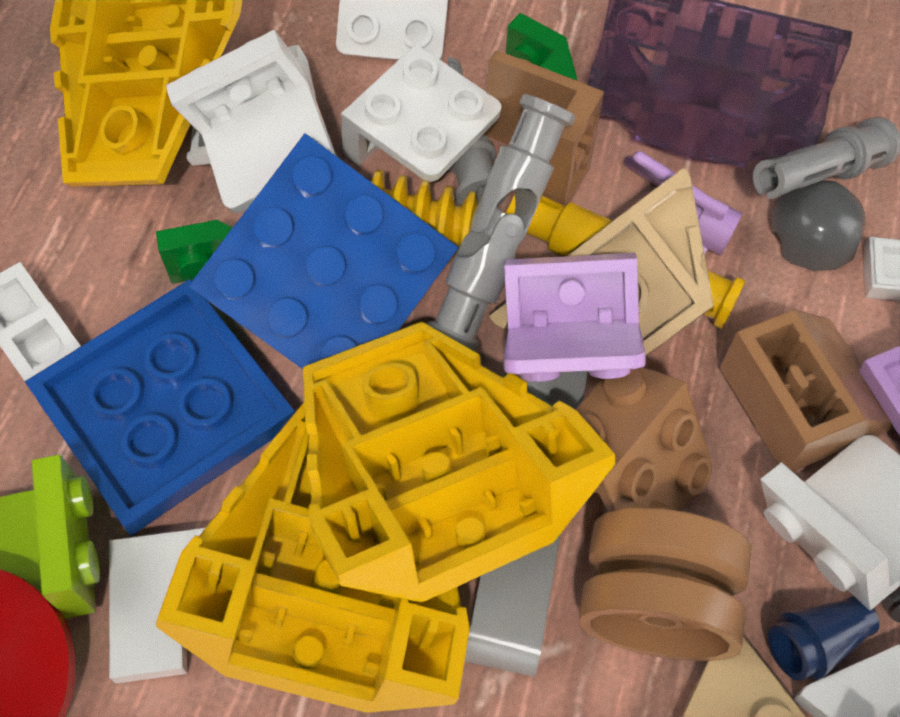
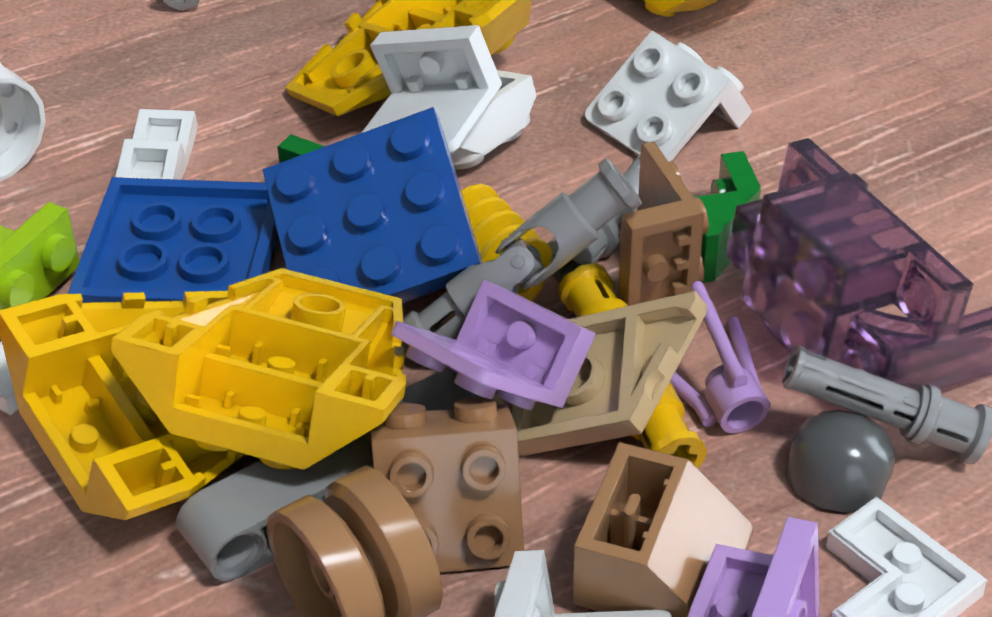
camera: 45 degrees right, 20 degrees down
(418, 116) = (561, 160): white bracket -> none

